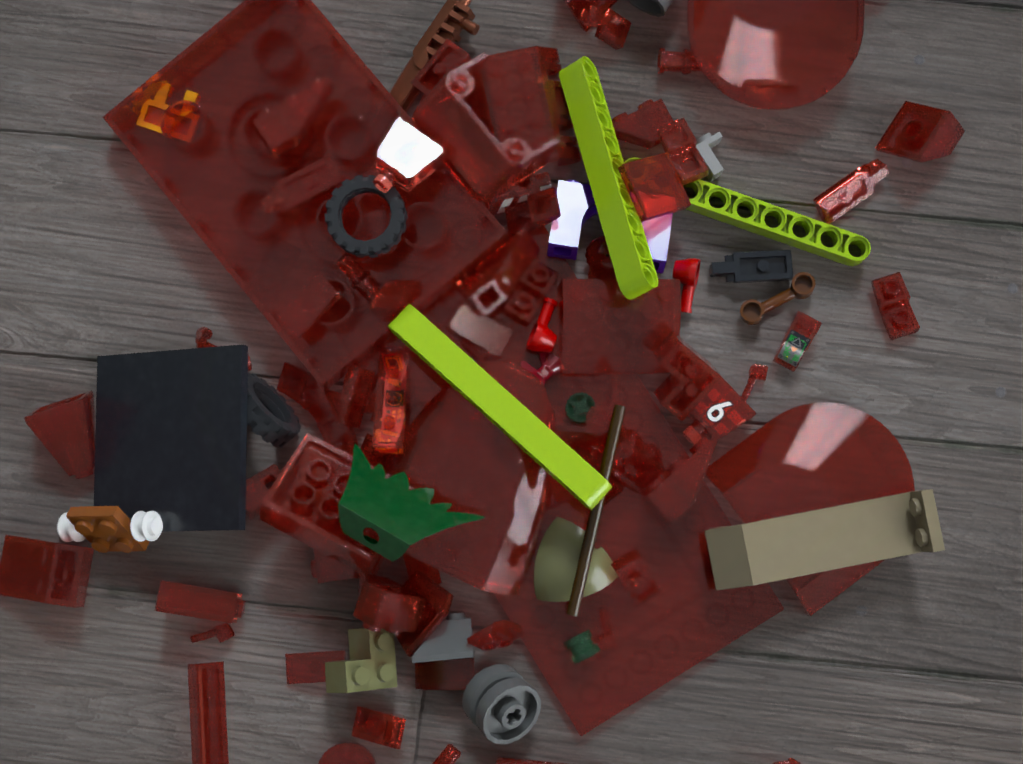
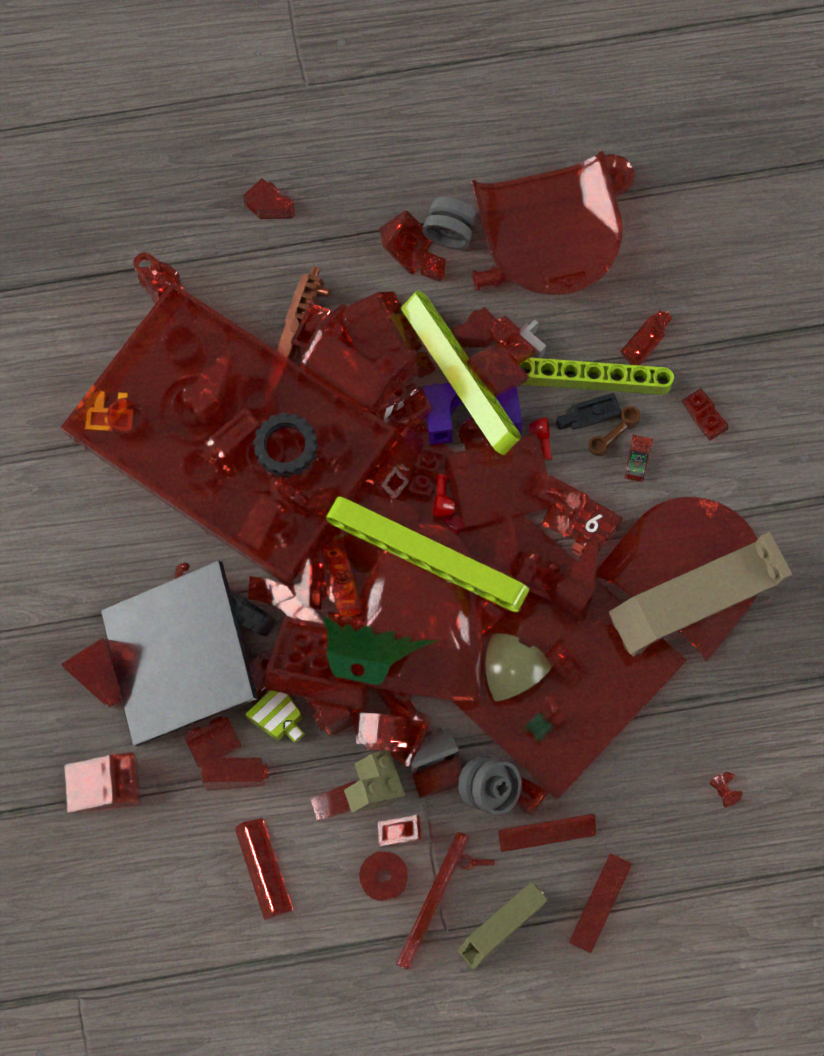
camera: 15 degrees left, 10 degrees down
(110, 528) = (148, 733): dark orange plate -> none
(188, 554) = (213, 740): none -> clear red bracket
(222, 632) = (255, 794): clear red hand -> none
(270, 549) = (277, 716): none -> torso
(406, 158) = (305, 393): torso -> none
(497, 634) = (471, 734): clear red slope -> none
(549, 727) = (531, 797): none -> clear red slope
(582, 403) = (487, 544): clear green wheel -> none
(595, 515) = (522, 620): dark brown piece -> none
(756, 372) = (614, 490): clear red hand -> none
(921, 133) = (687, 282): clear red slope -> none

